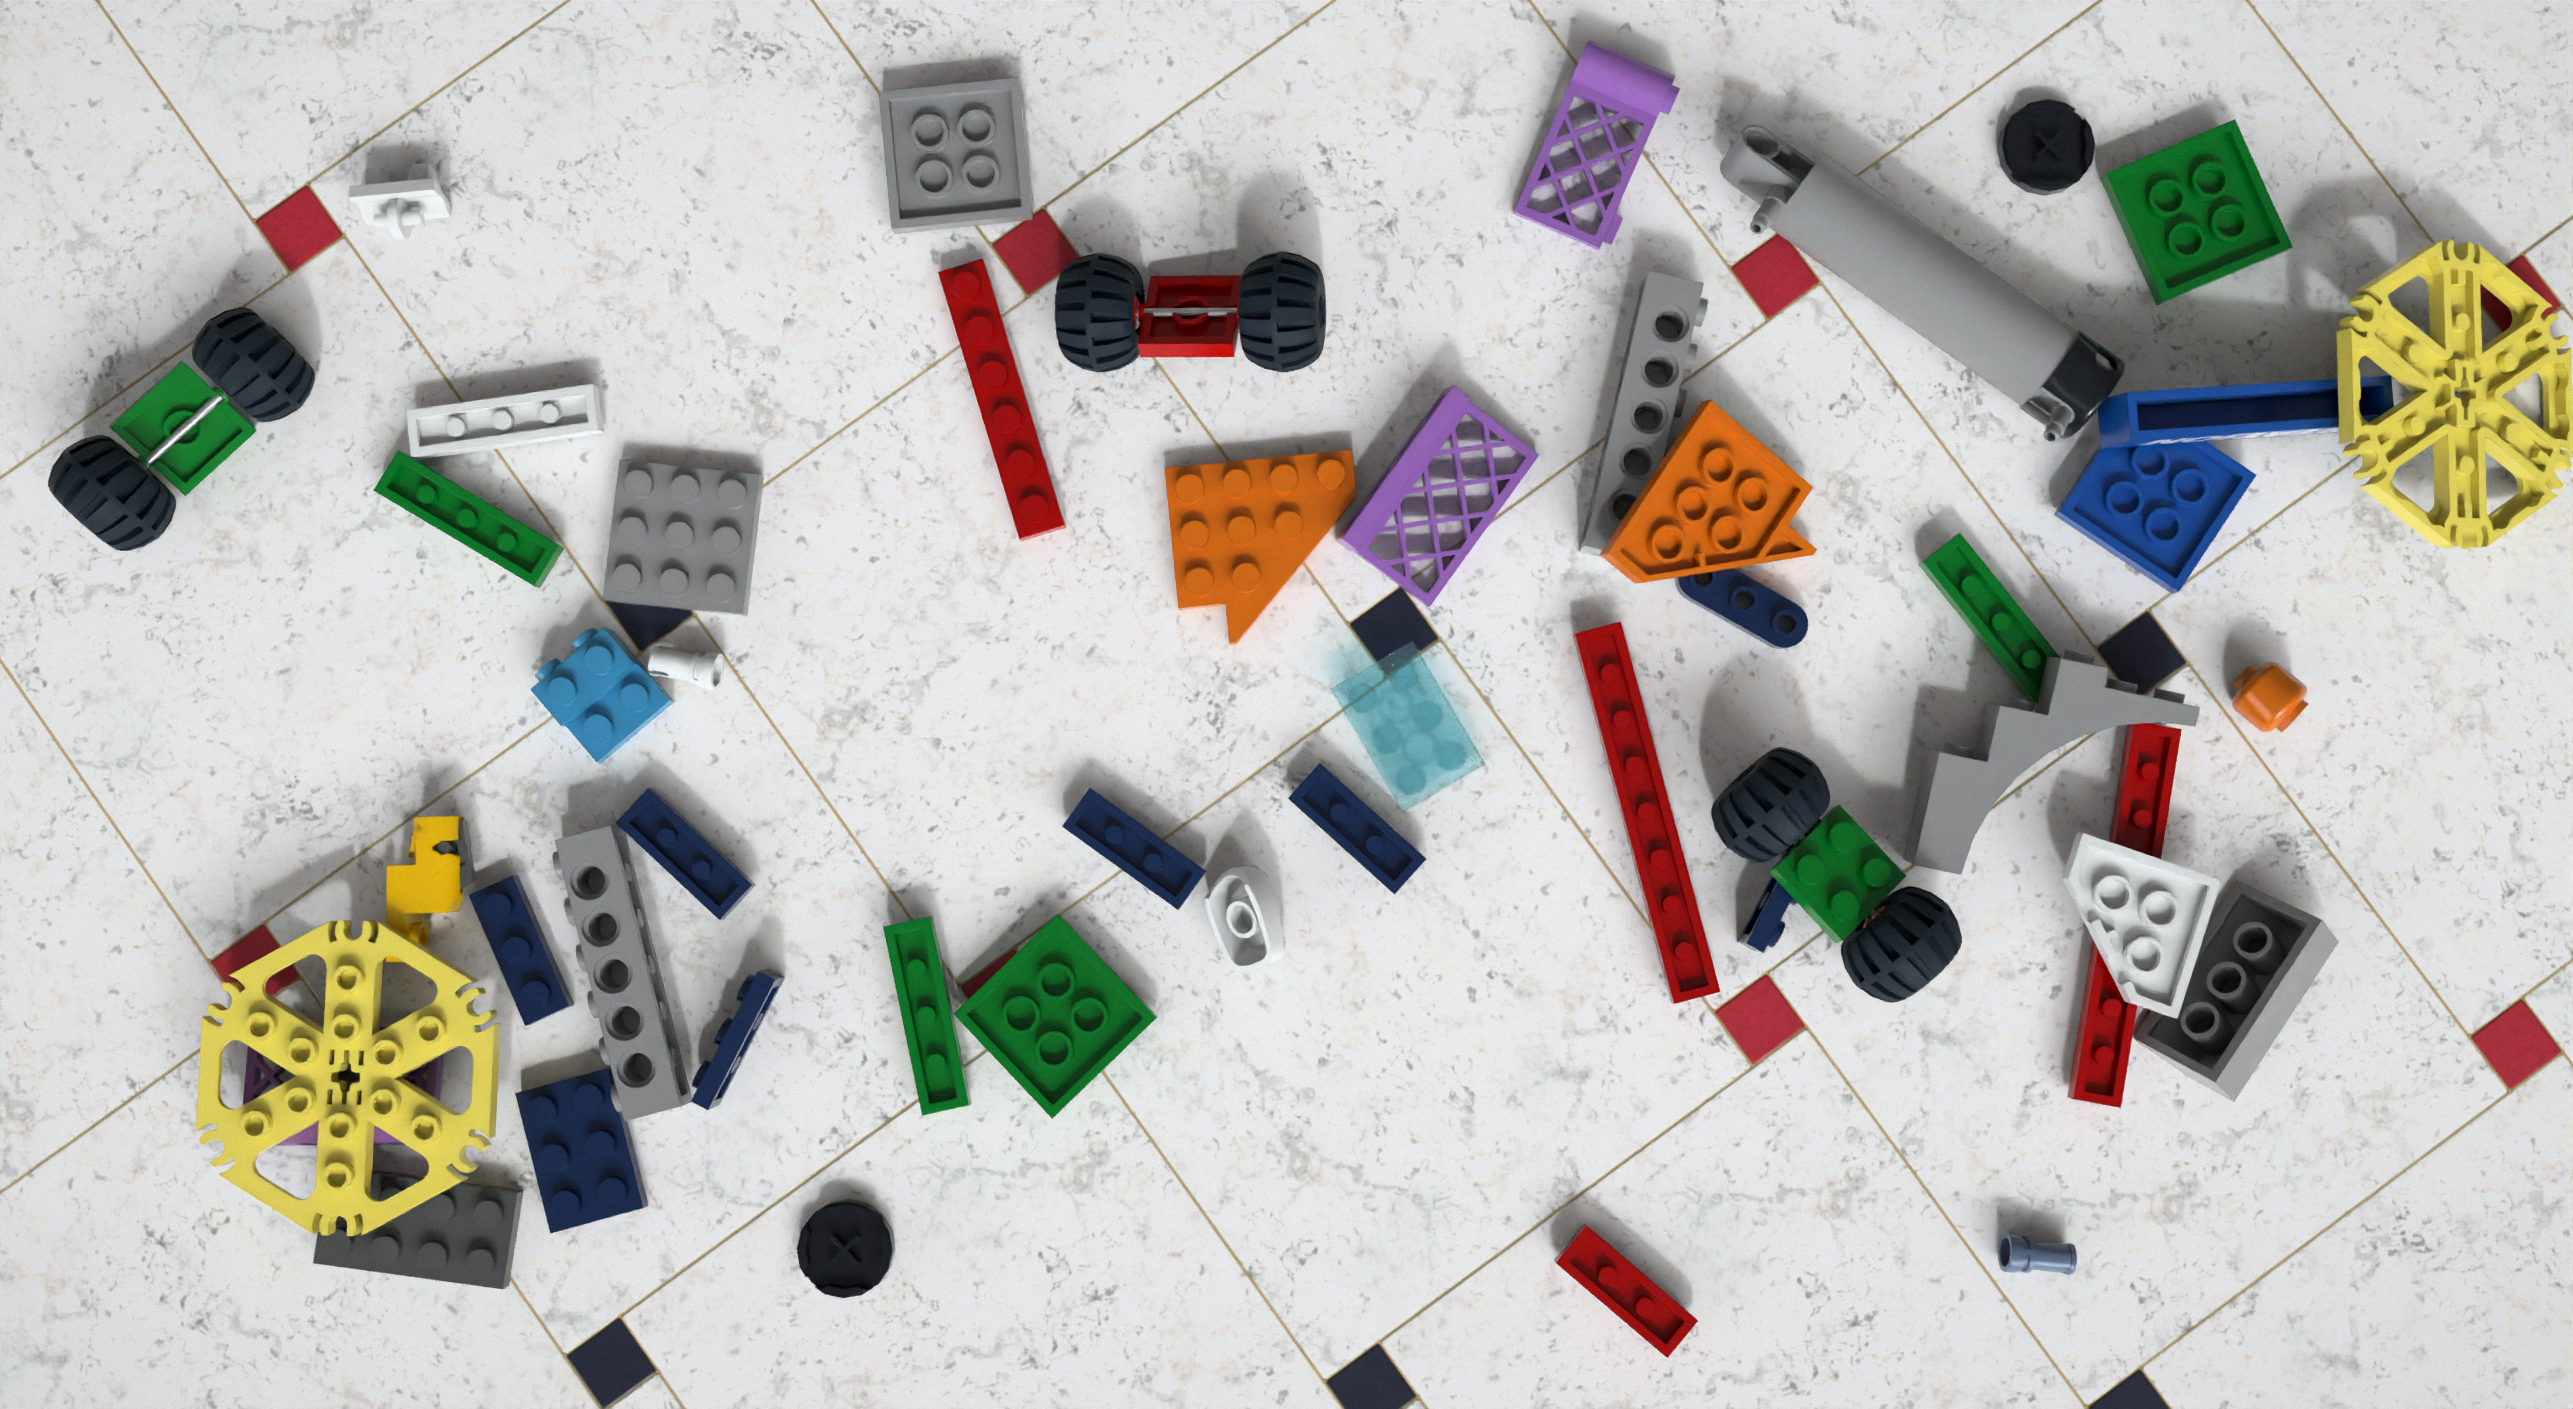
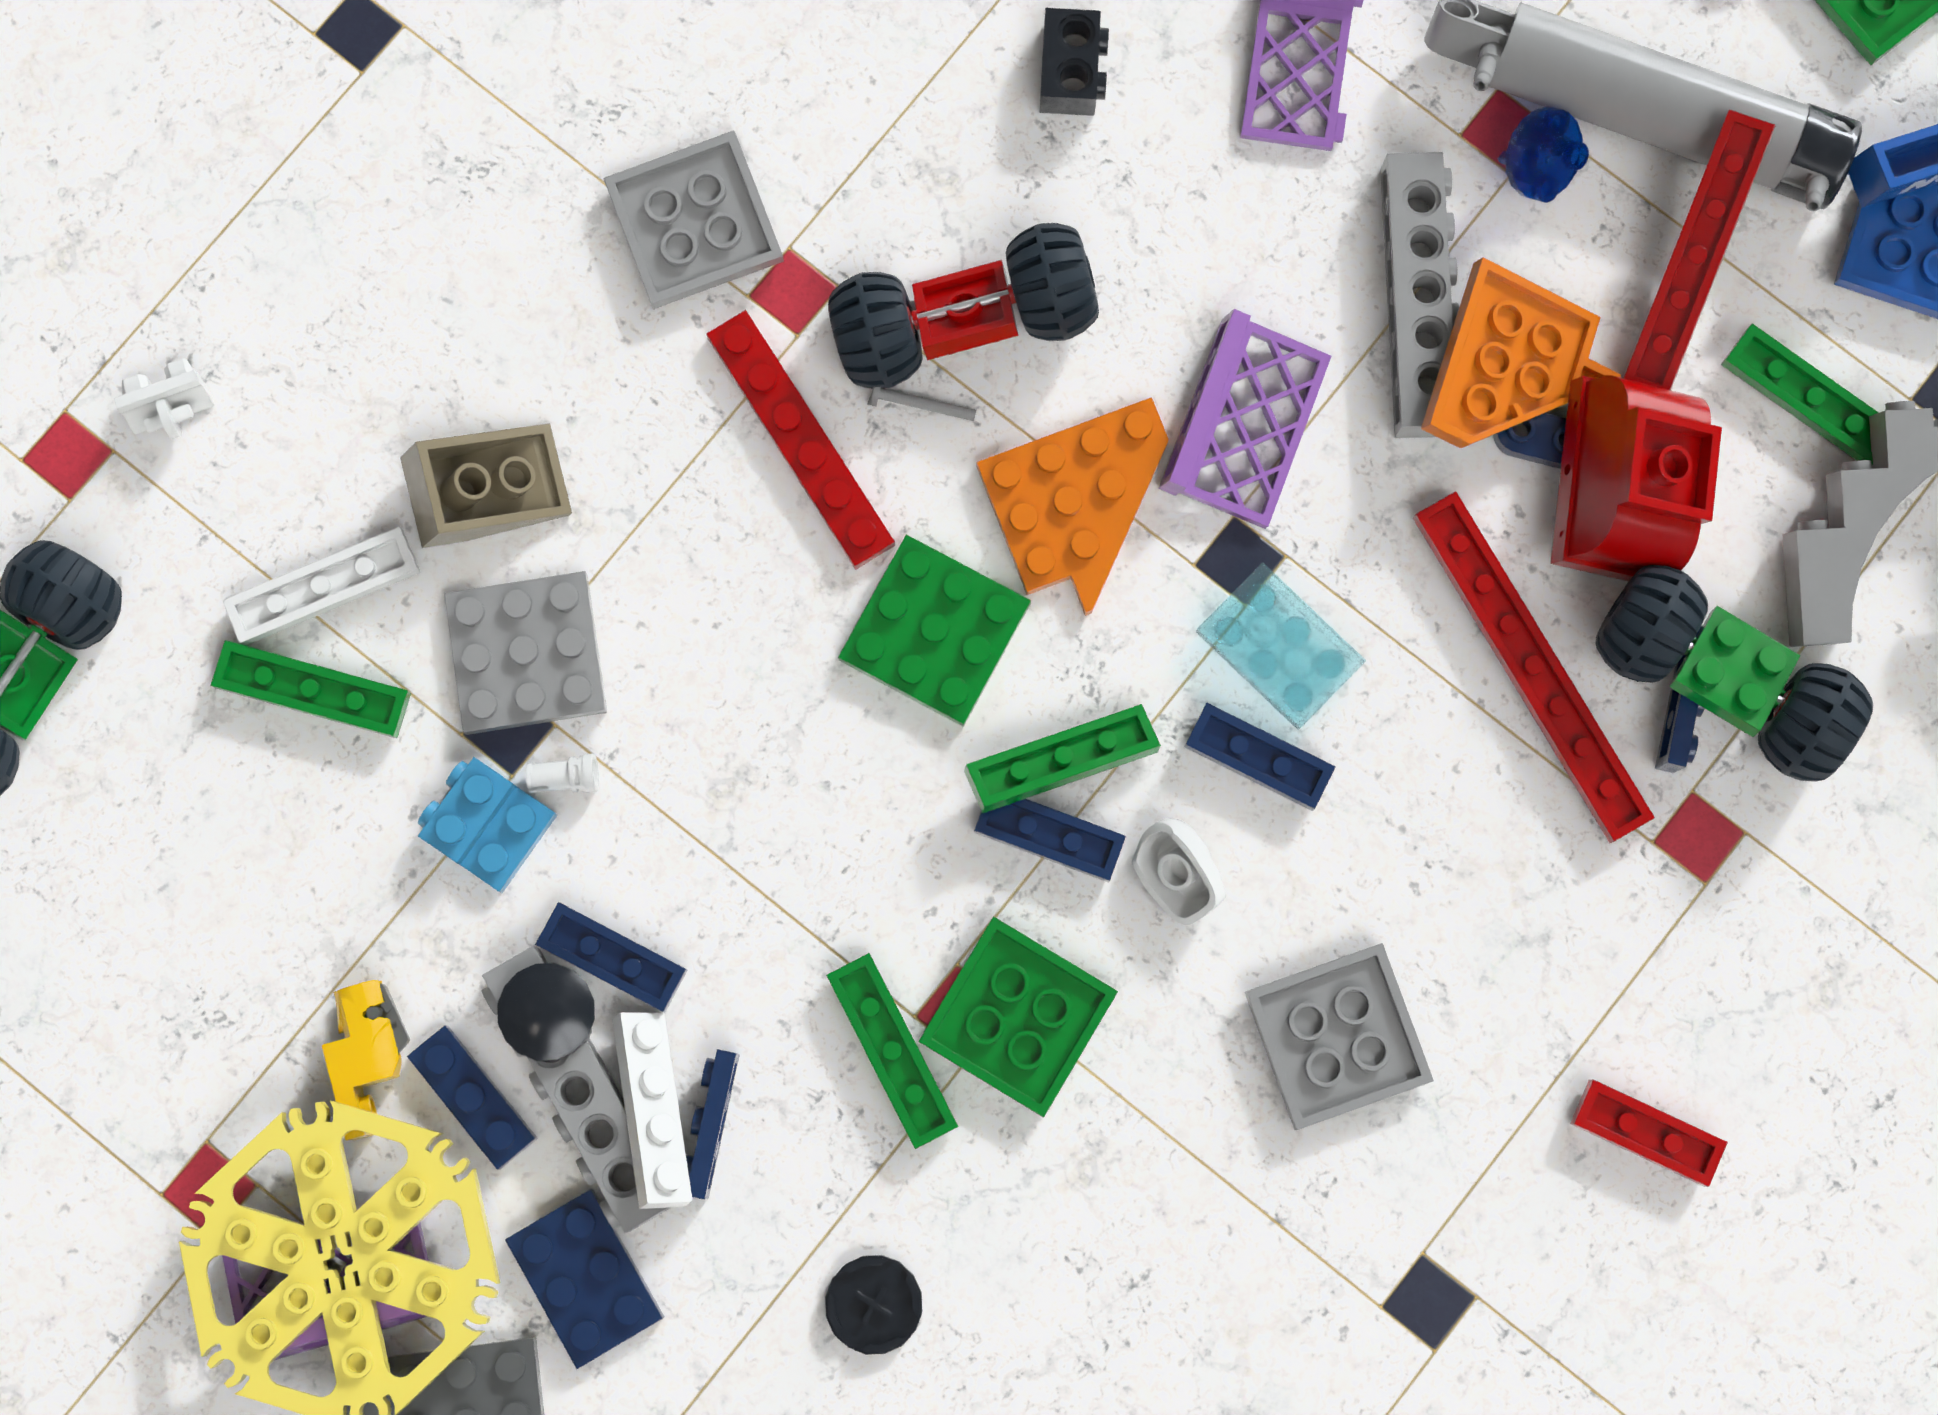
camera: 20 degrees left, 5 degrees down
(604, 892) = (546, 1011): none -> black dish
(681, 1012) = (652, 1110): none -> white plate
(686, 363) = (484, 484): none -> dark tan slope
(1080, 621) = (934, 630): none -> green plate
(1128, 395) = (921, 403): none -> light grey piece
(1164, 780) = (1062, 758): none -> green plate
(1356, 1117) = (1338, 1036): none -> light grey plate
(1359, 93) = (1065, 61): none -> black brick
(1795, 656) = (1633, 477): none -> red container
(1823, 303) = (1529, 165): none -> clear blue plate
(1926, 451) = (1700, 250): none -> red plate

